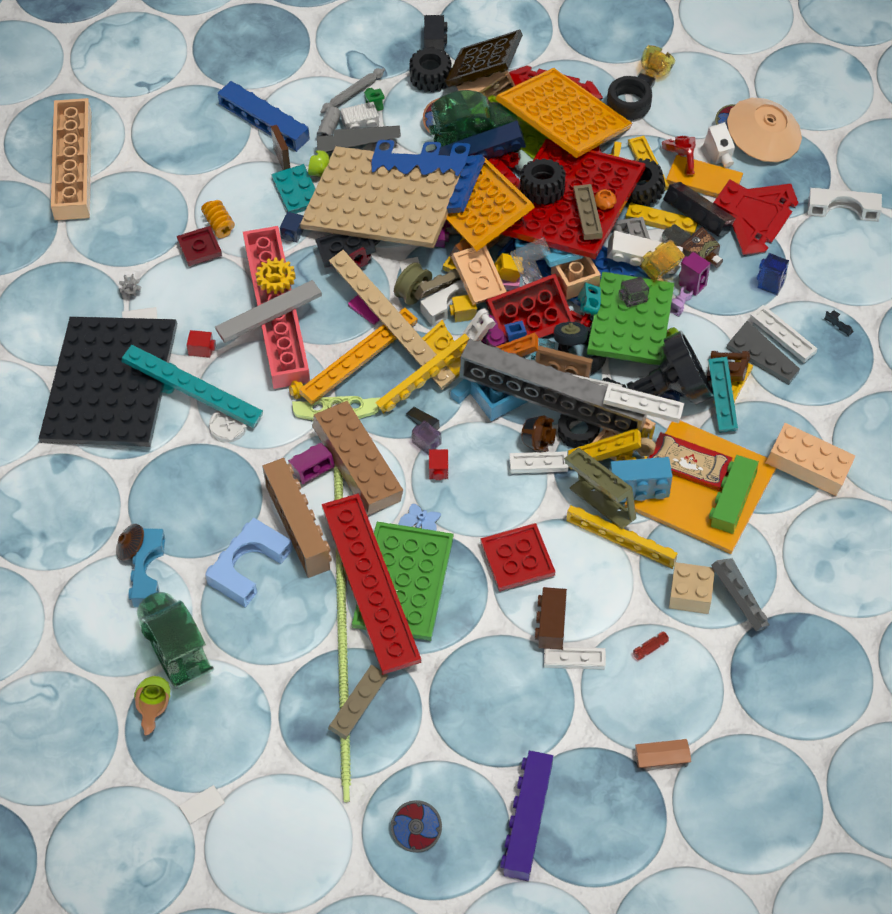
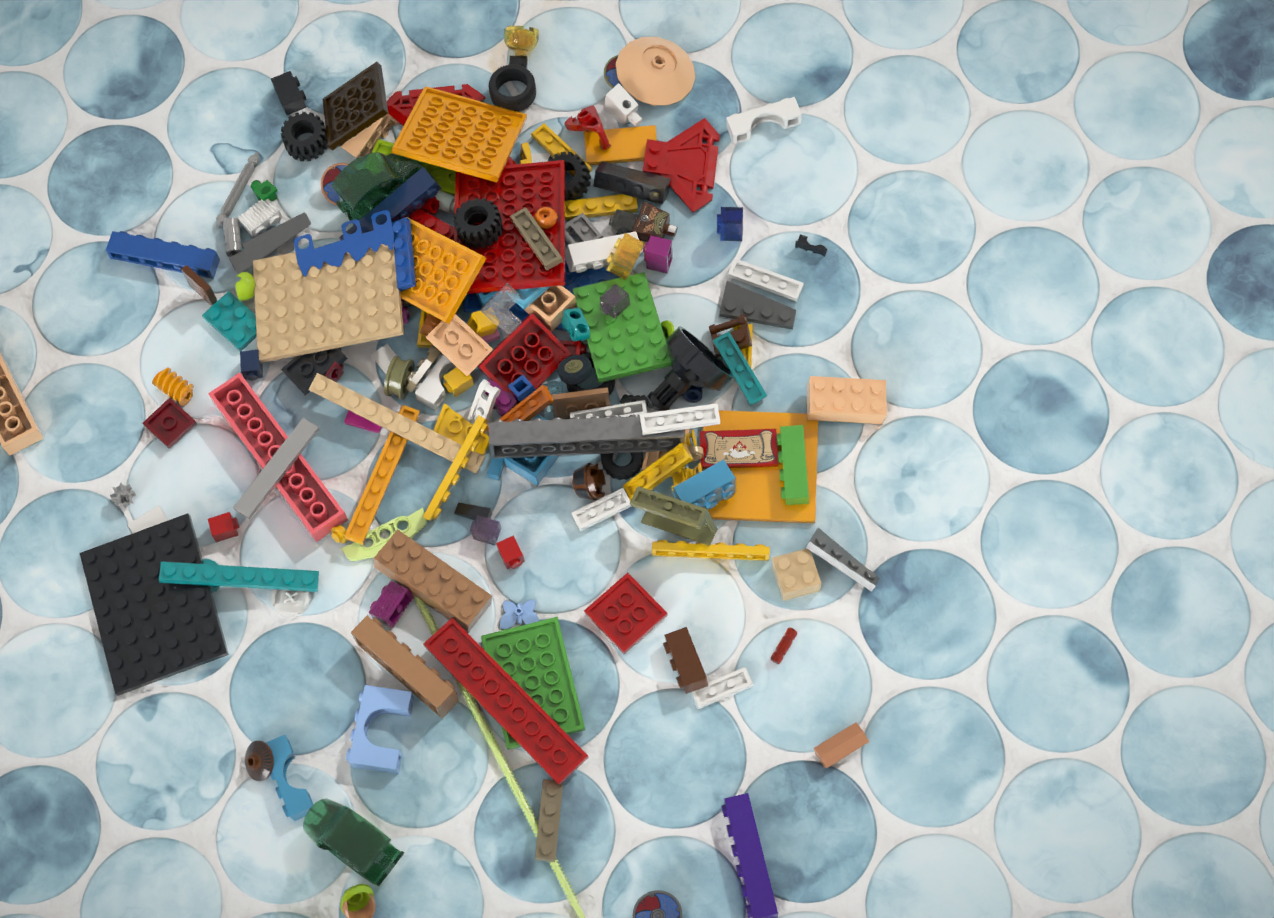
camera: 20 degrees left, 10 degrees up
(275, 275) = (265, 428): yellow gear -> none
(678, 302) = (655, 287): lavender piece -> none

